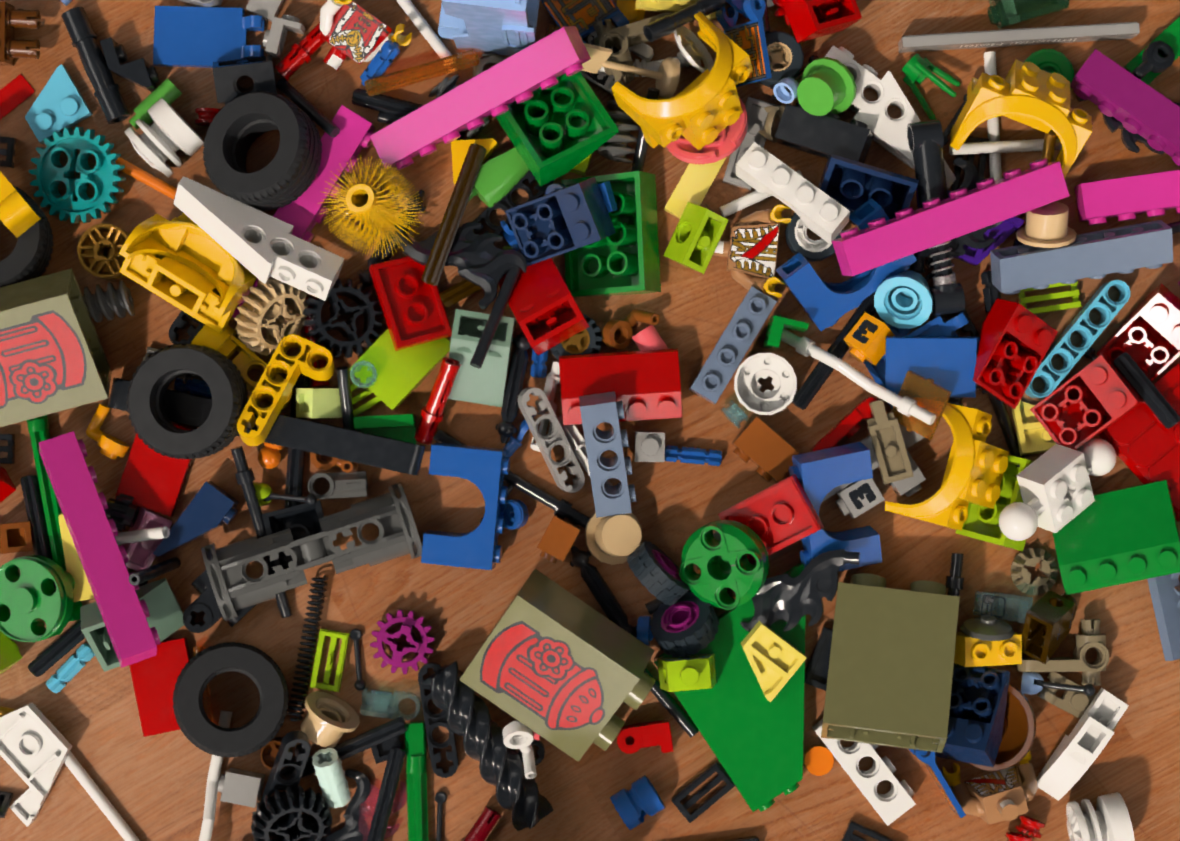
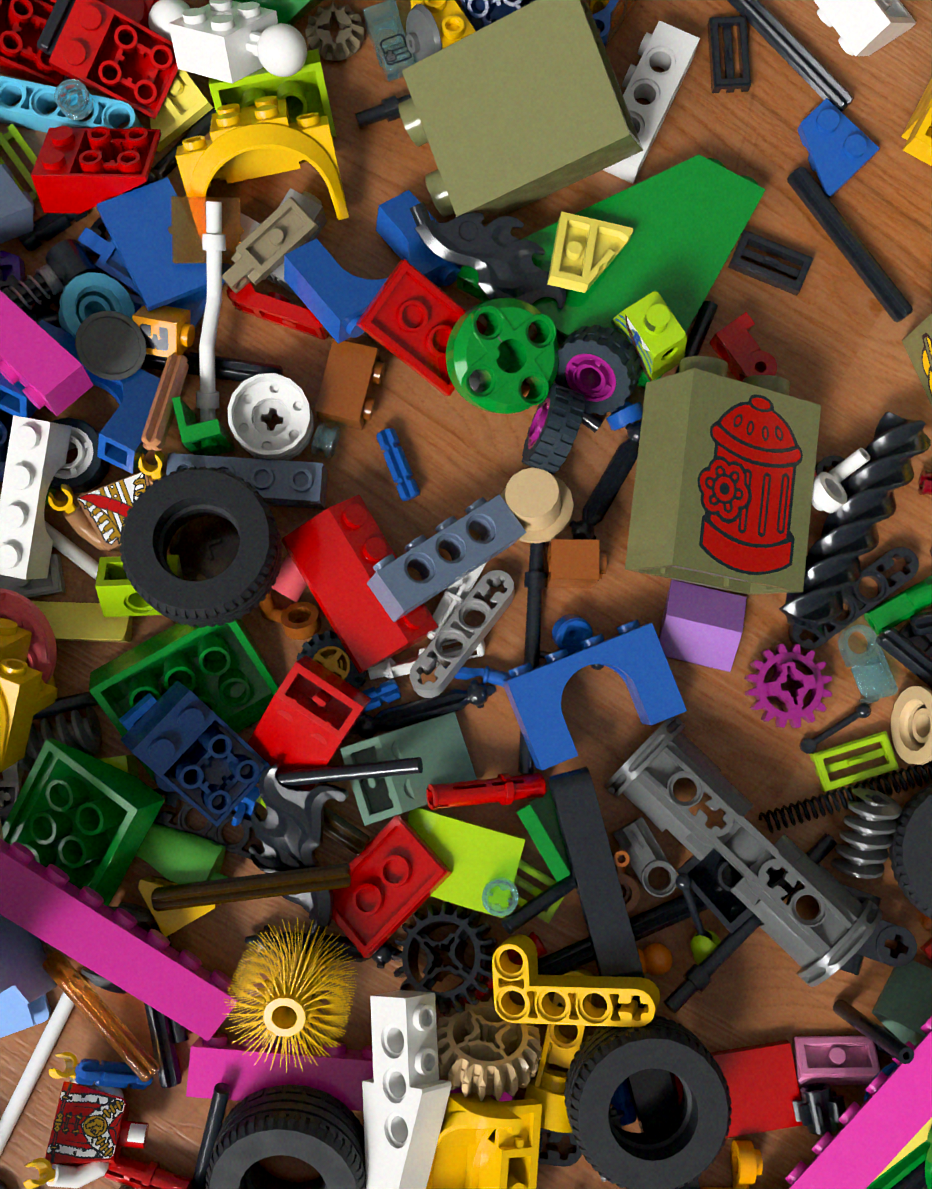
camera: 115 degrees left, 5 degrees down
(142, 535) = (836, 1070): white piece -> none
(204, 514) = (763, 1003): dark blue slope -> none
(276, 640) = (869, 835): none -> dark grey piece
(318, 402) = (562, 934): yellowish green panel -> none
(473, 606) = (702, 625): none -> medium lavender slope
(637, 802) = (824, 324): blue wheel -> none
(649, 447) = (413, 515): light grey brick -> none
(704, 296) = (205, 546): none -> dark brown tile
(734, 287) = (169, 506): none -> black tyre
(812, 316) = (162, 408): none -> nougat axle
(818, 666) = (548, 209): black tile -> none
(818, 760) = (665, 153): orange tile -> none
(858, 498) = (352, 251): light grey brick -> none
(871, 299) = (110, 345): none -> dark grey piece
(1074, 353) = (63, 98): none -> clear light blue bush

